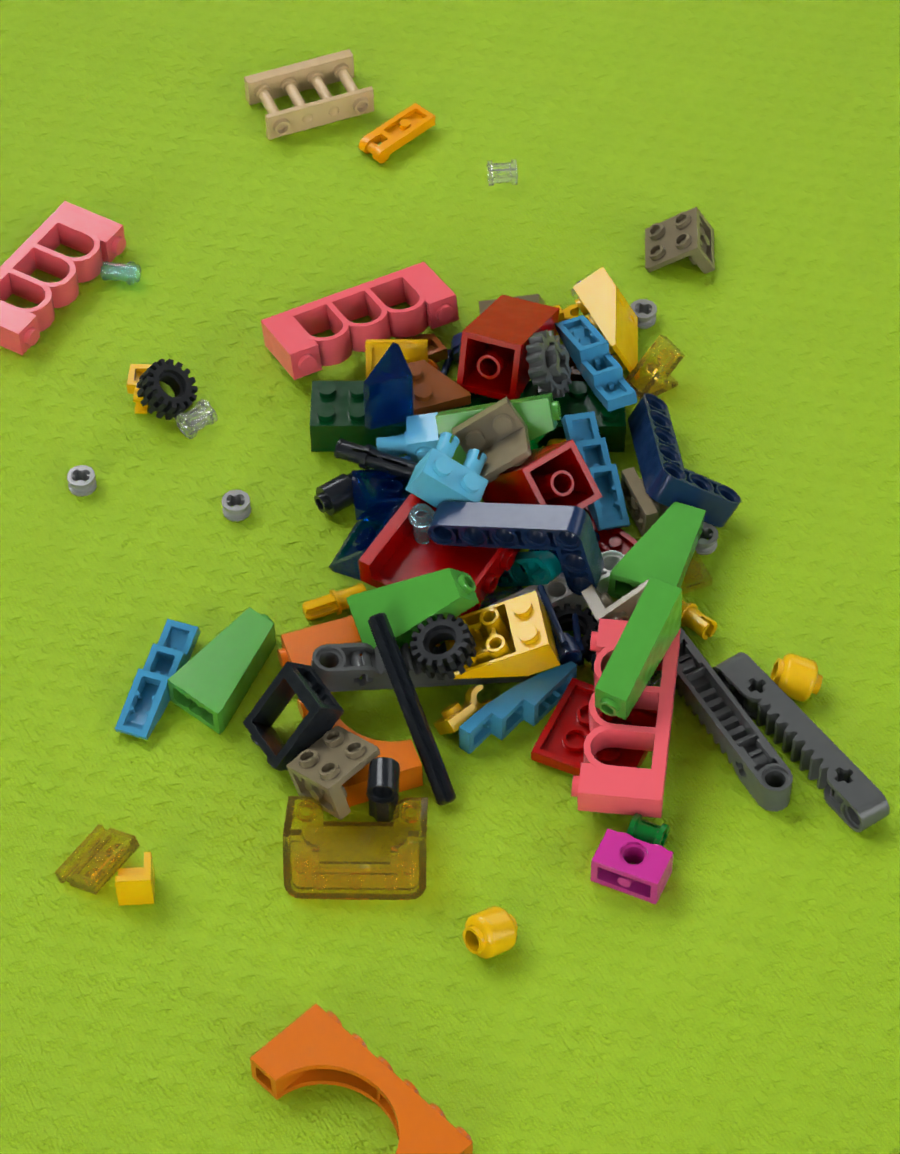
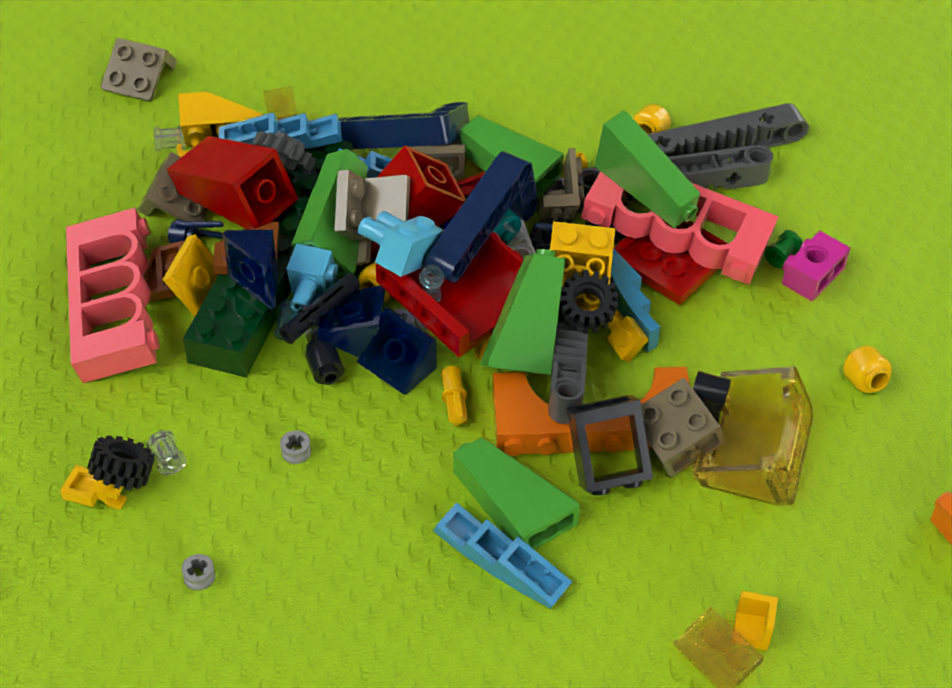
camera: 75 degrees left, 0 degrees up
(412, 709) = (623, 350): black axle -> none

